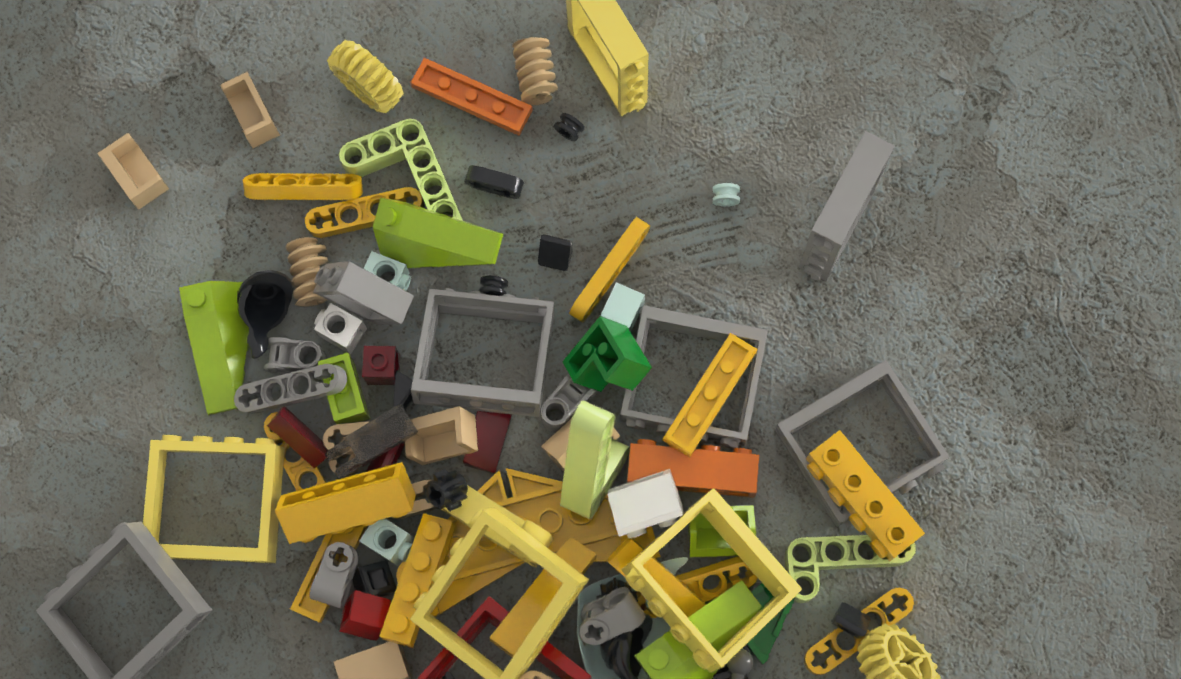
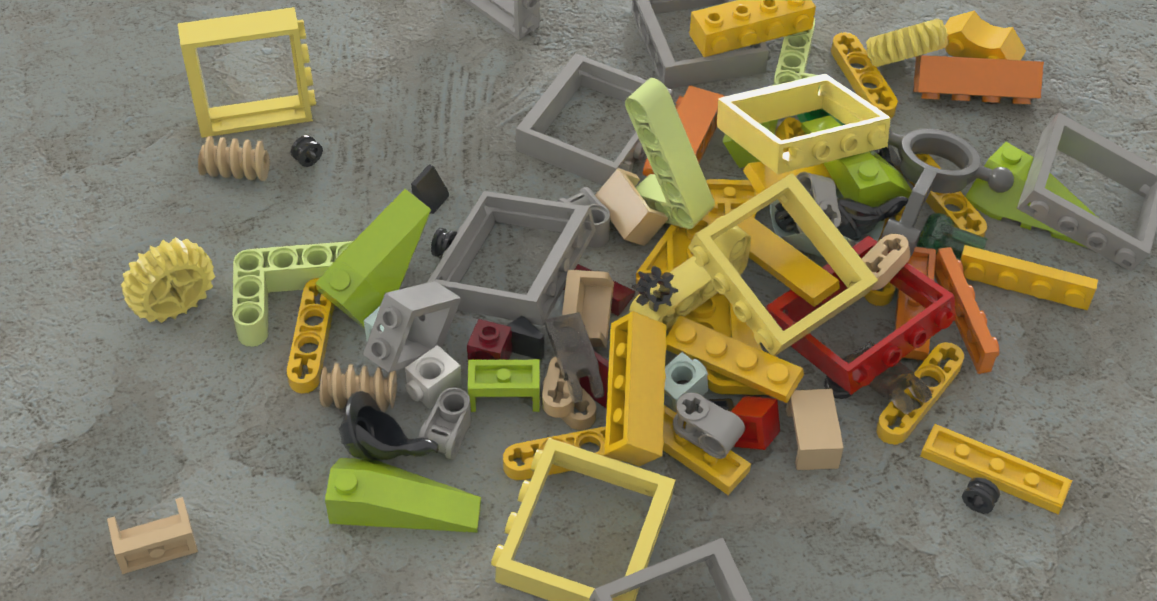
camera: 80 degrees left, 25 degrees down
(250, 110) = (142, 402): tan panel -> none
(289, 385) = (486, 424): light grey beam -> none
(298, 437) = (542, 426): dark red slope -> none
(302, 186) = (256, 377): yellow beam -> none
(471, 96) = (238, 212): orange plate -> none
(494, 182) = (333, 218): black beam -> none
(607, 356) = (552, 155): green brick -> none
(609, 270) = (466, 154): yellow beam -> none
(623, 305) = (509, 153): light aqua brick -> none
(645, 504) = (720, 151): white slope -> none
(709, 395) = (603, 88): yellow tile -> none
(726, 194) = (430, 60): light aqua bush -> none
(851, 620) = (858, 68): black slope -> none

